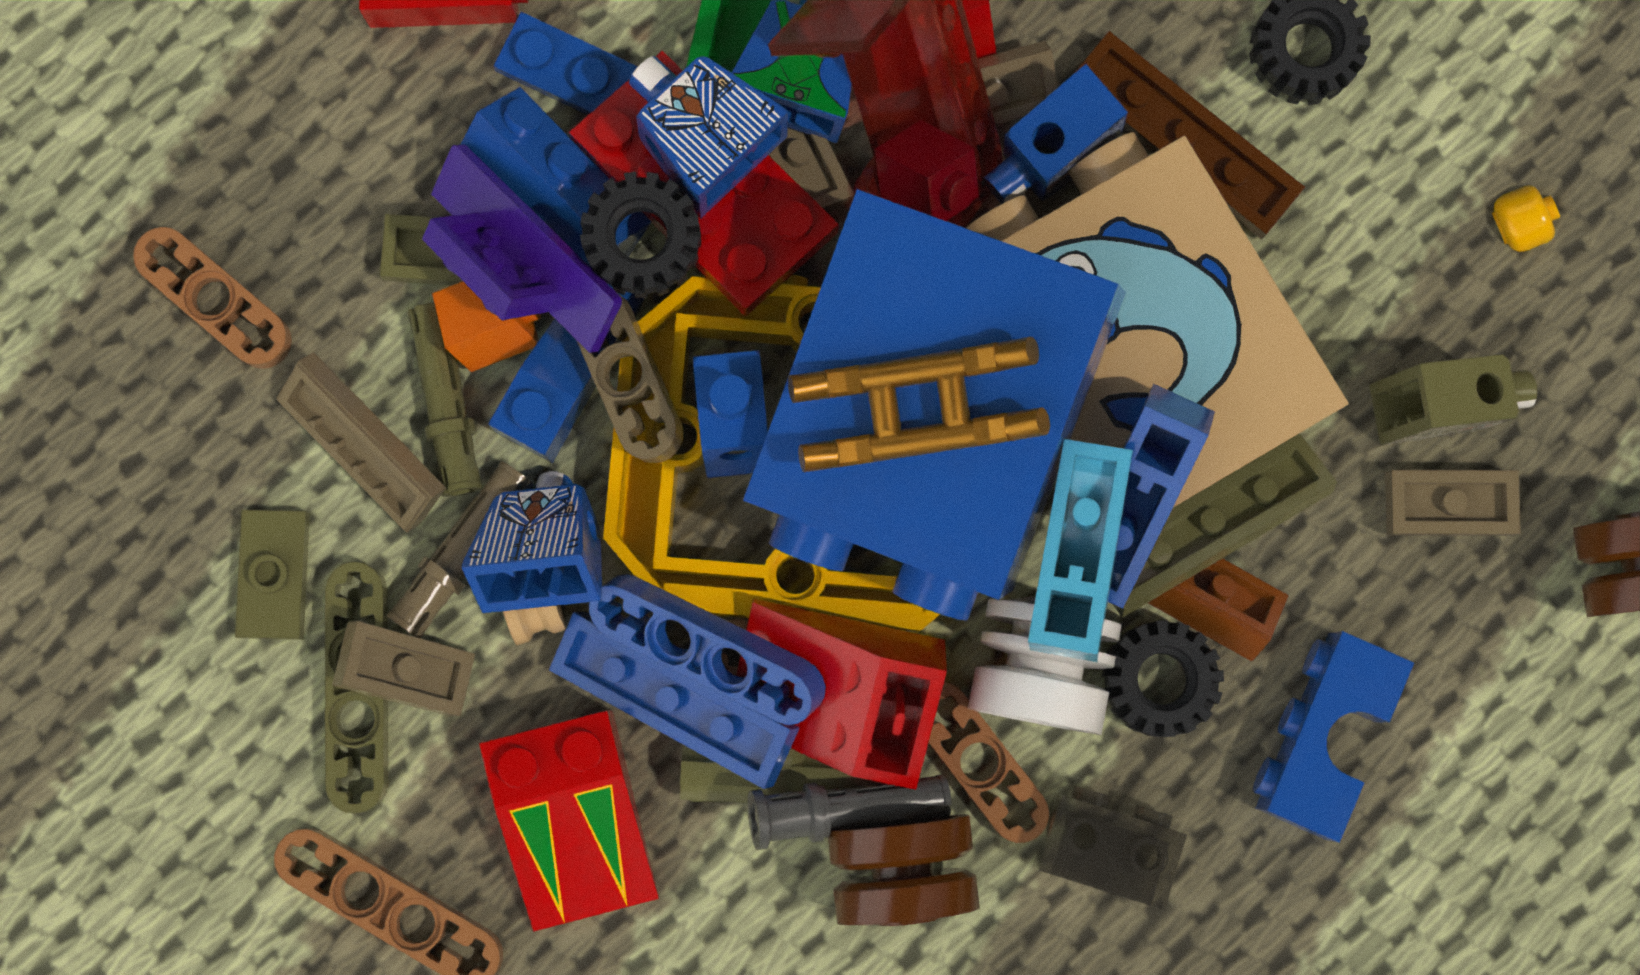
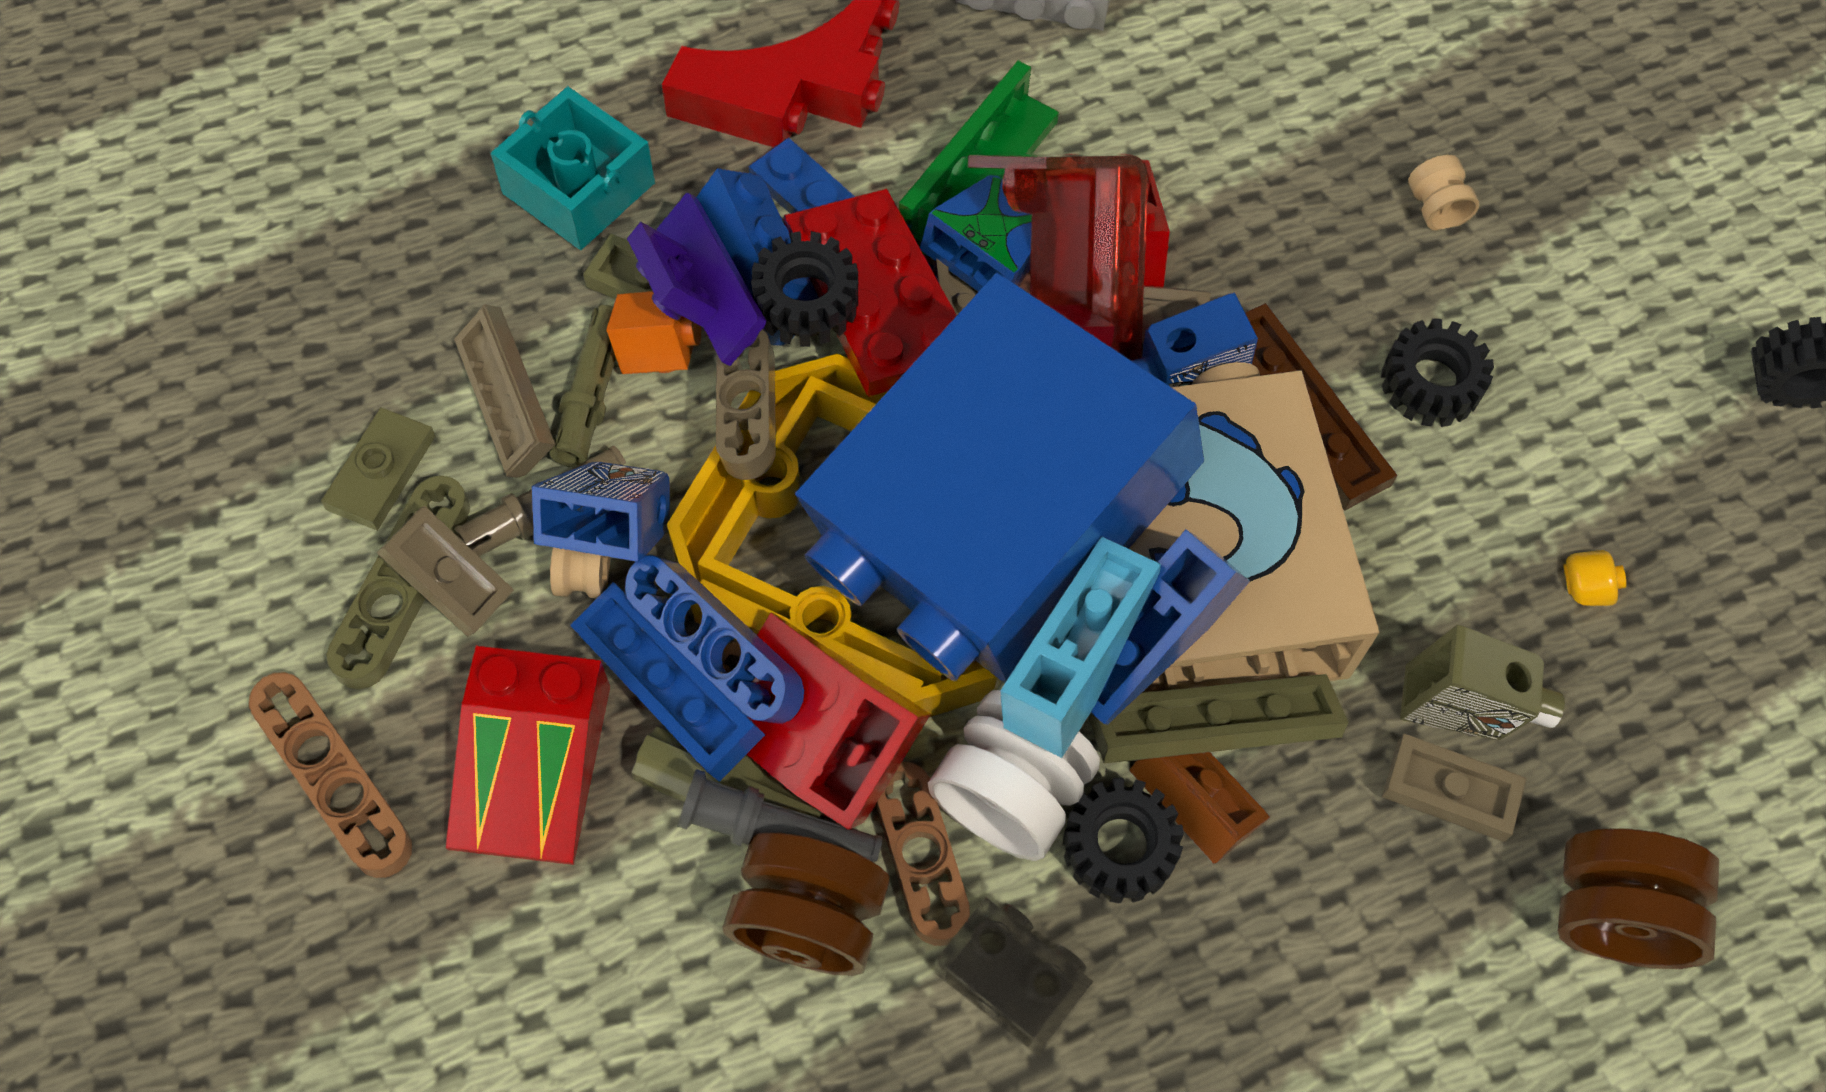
camera: 25 degrees right, 20 degrees down
(190, 256) = (445, 231): medium nougat beam -> none
(309, 150) = (573, 167): none -> teal brick
(549, 391) = (674, 406): blue slope -> none
(705, 126) = (897, 235): blue torso -> none
(730, 411) = (816, 427): blue torso -> none
(880, 382) = (953, 421): pearl gold piece -> none
(1303, 781) = (1228, 992): blue arch -> none

